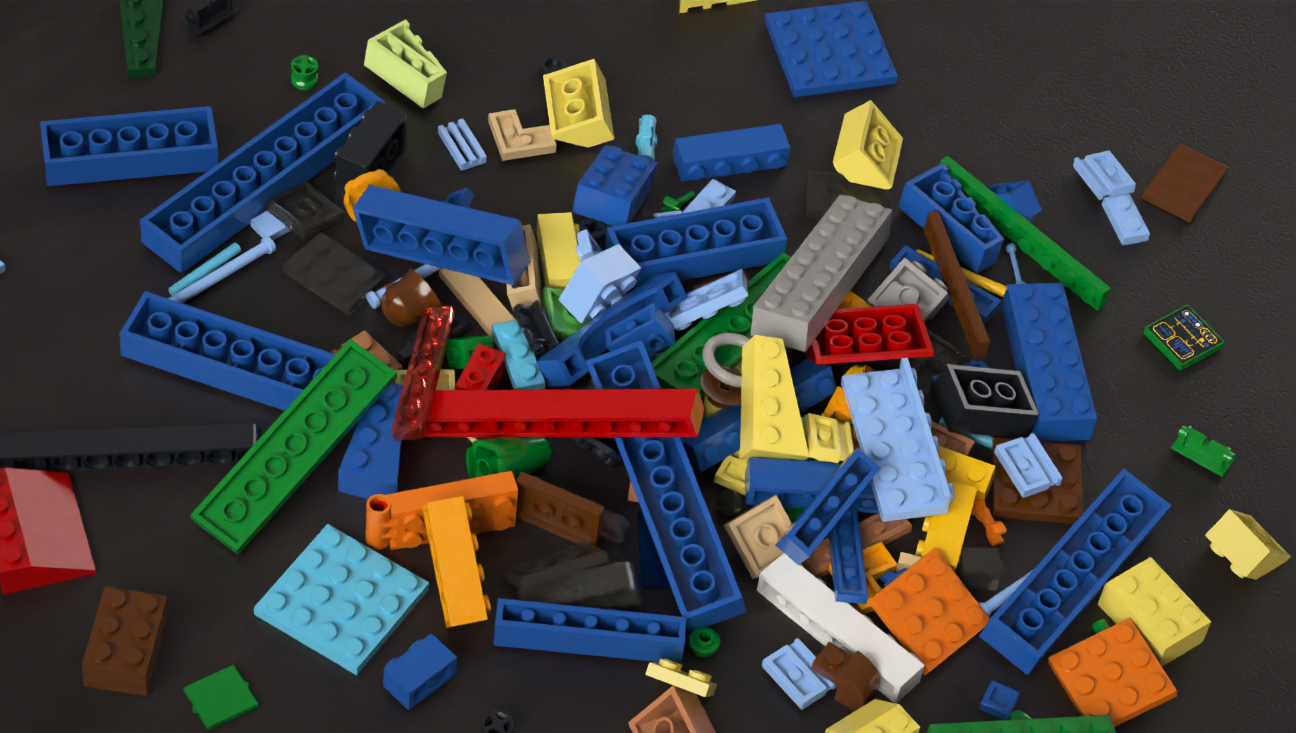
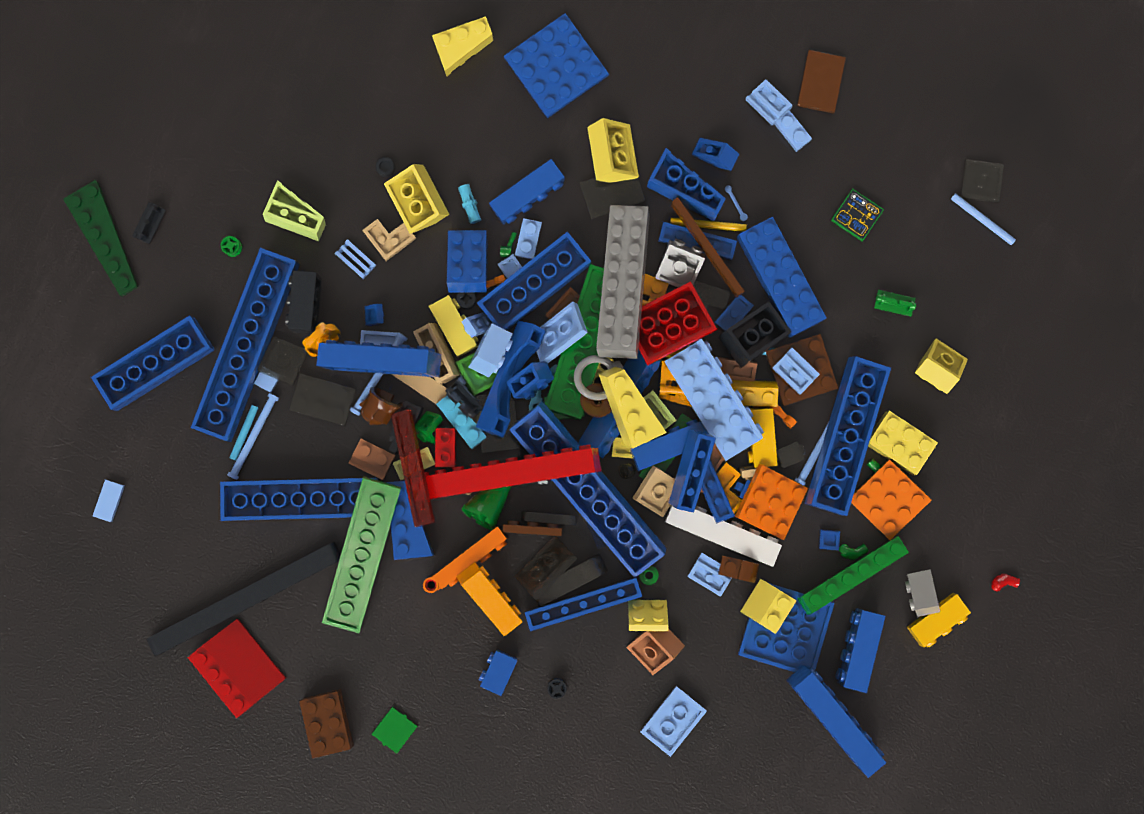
camera: 15 degrees left, 35 degrees up
(341, 599) = (432, 635): medium azure plate -> none
(828, 439) = (673, 412): light yellow plate -> none
(1031, 239) = (739, 181): green plate -> none

